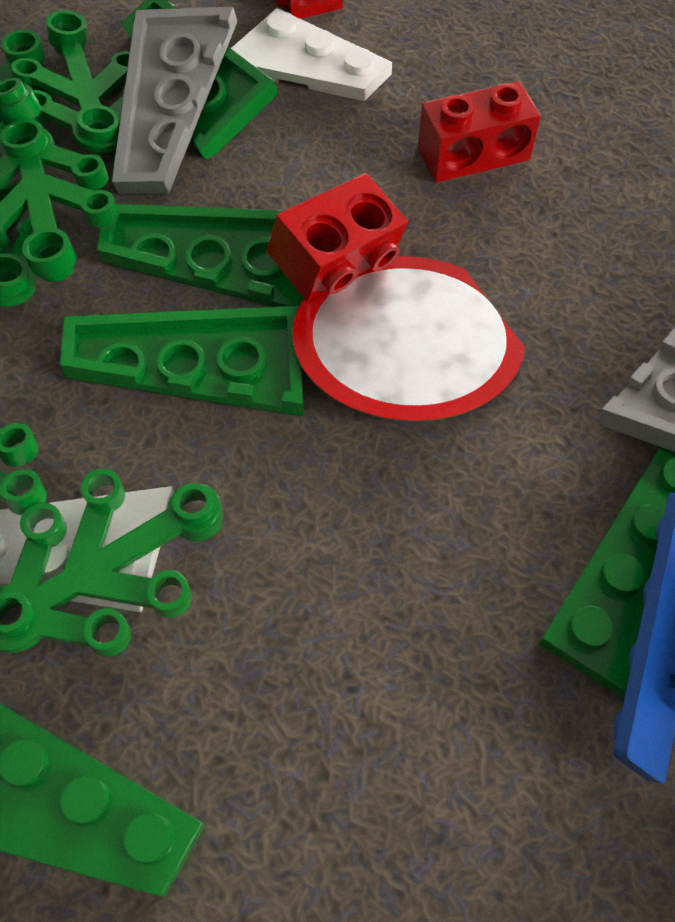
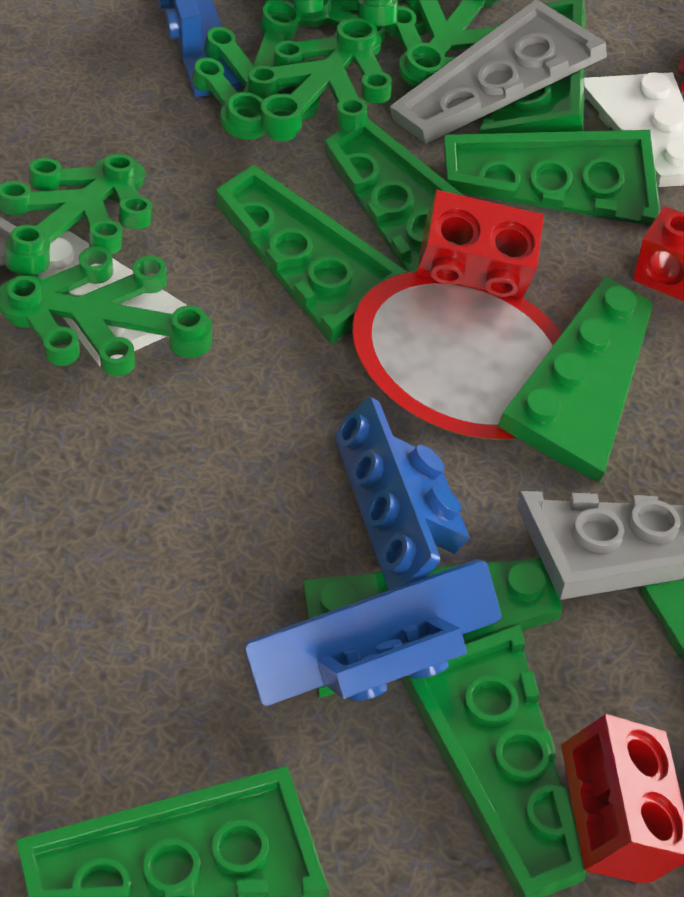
camera: 45 degrees right, 10 degrees down
(295, 138) = (562, 171): none -> green wing
(511, 292) = (582, 383): none -> green wing
(534, 500) = (399, 496): none -> blue bracket

